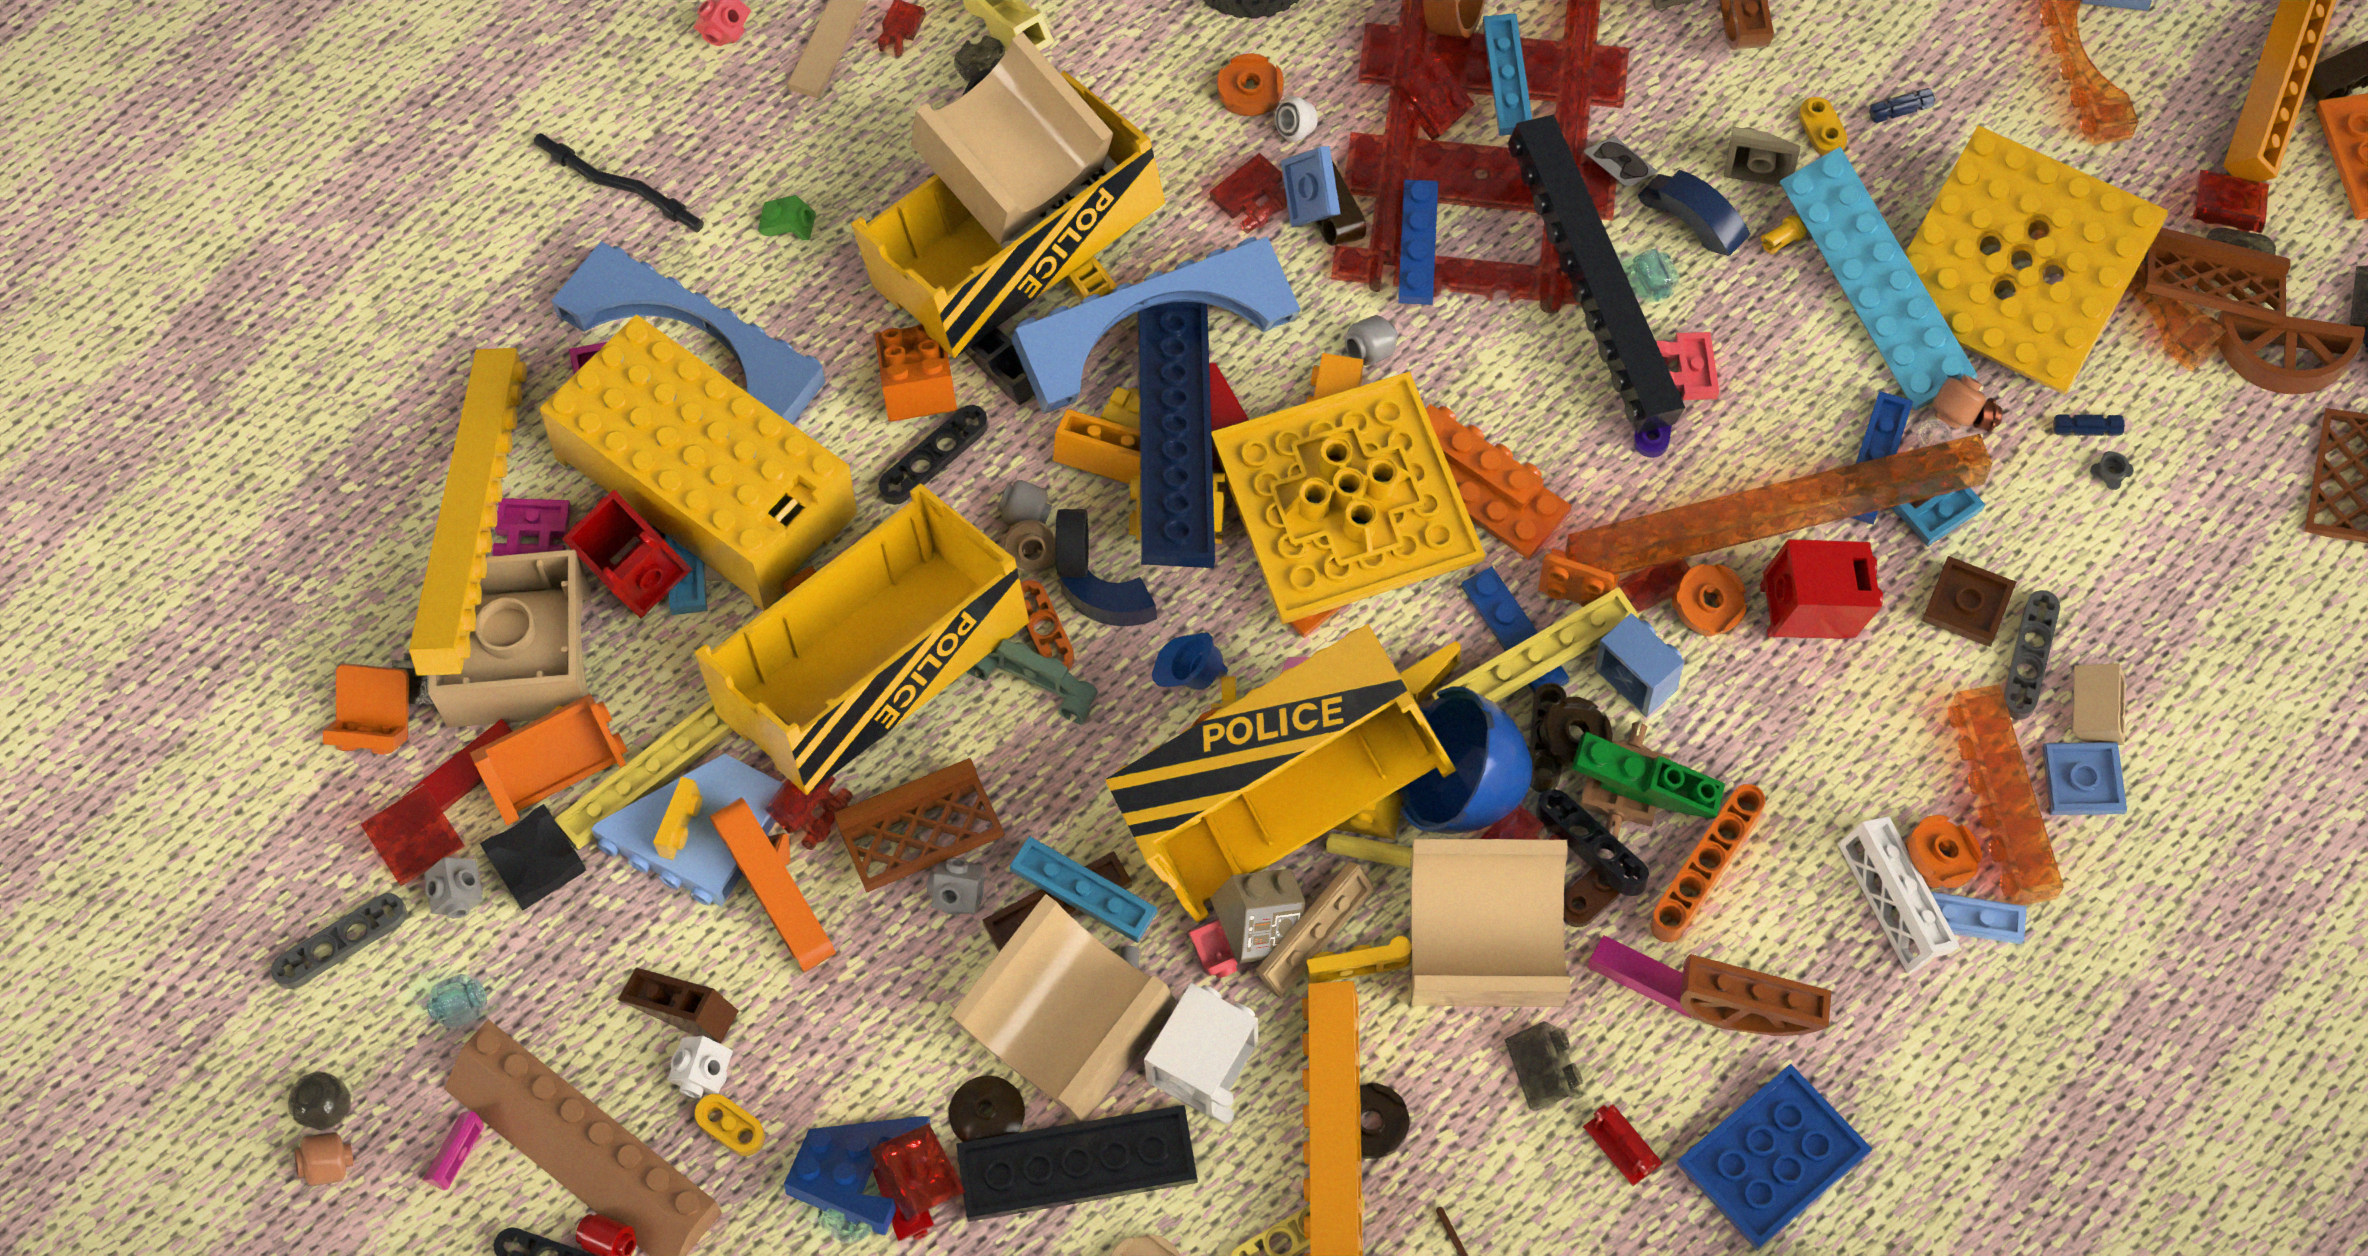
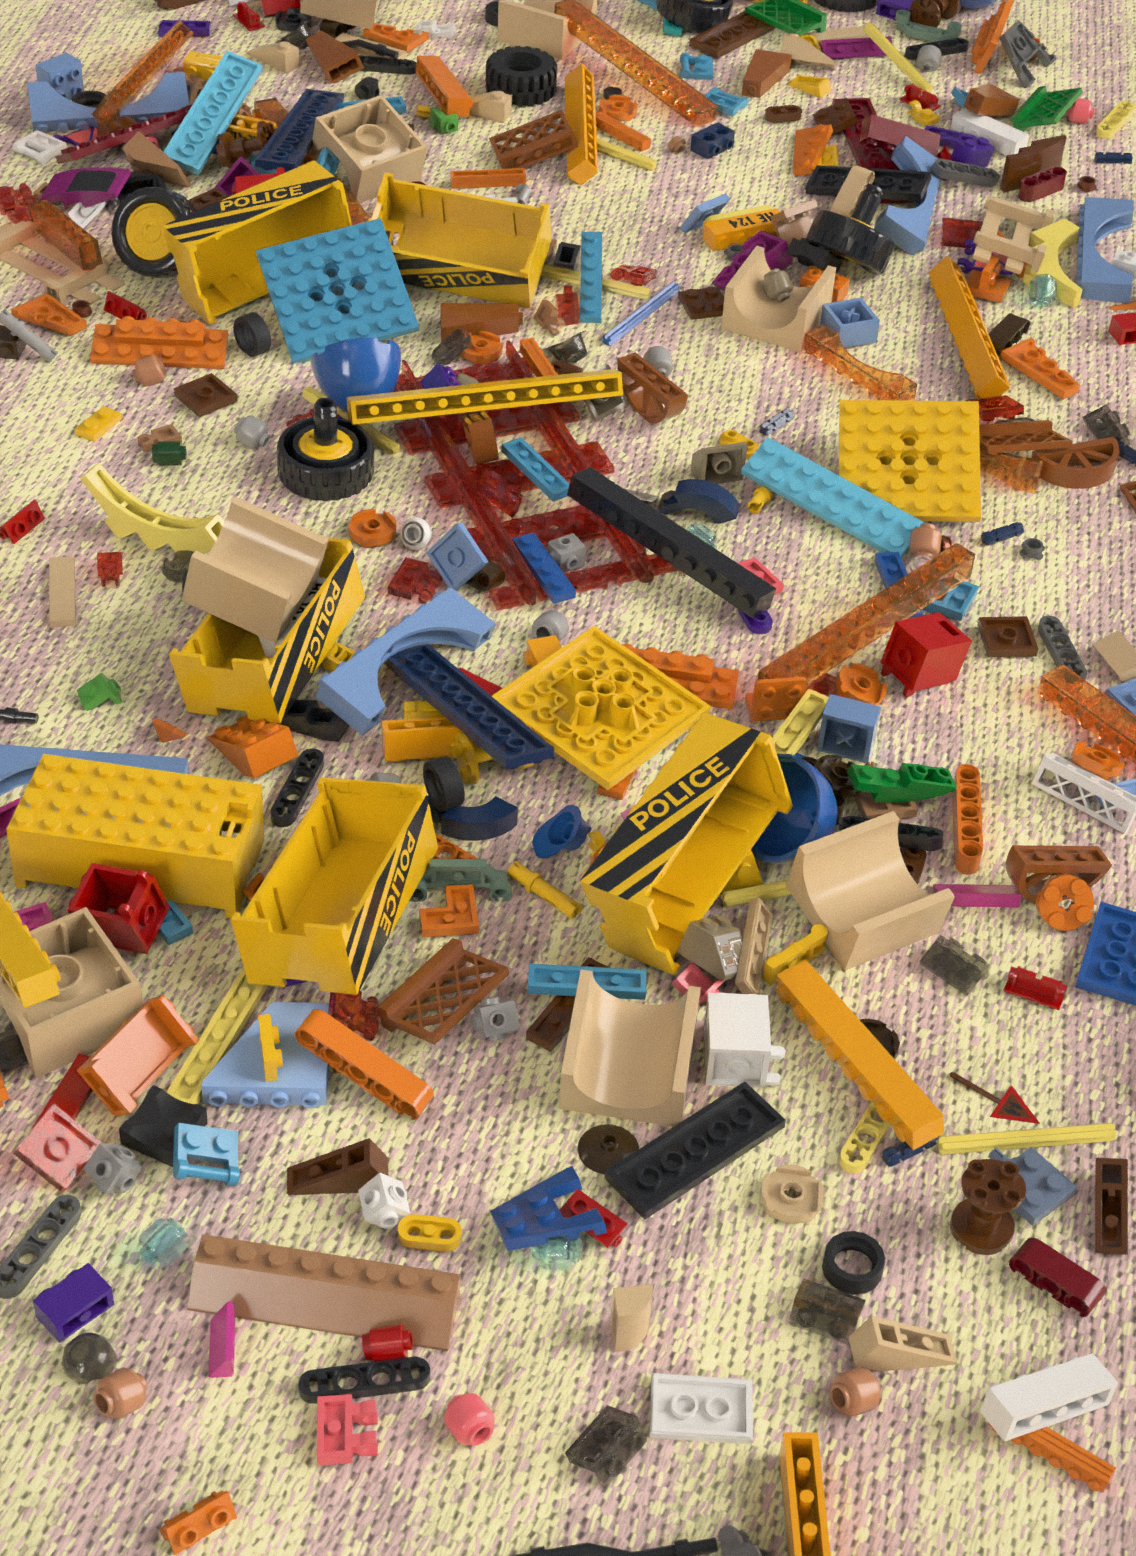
camera: 35 degrees left, 20 degrees down
(334, 1029) = (73, 1302): none -> dark purple brick
(556, 905) = (206, 1145): none -> plate
(827, 309) = (166, 731): none -> orange slope
(917, 1171) = (588, 1182): clear red plate -> none
(1004, 725) = (456, 919): none -> orange plate
(1121, 718) = (535, 883): none -> yellow pin
(1463, 228) = (567, 552): none -> light grey brick
(1729, 1065) = (1078, 911): none -> orange plate

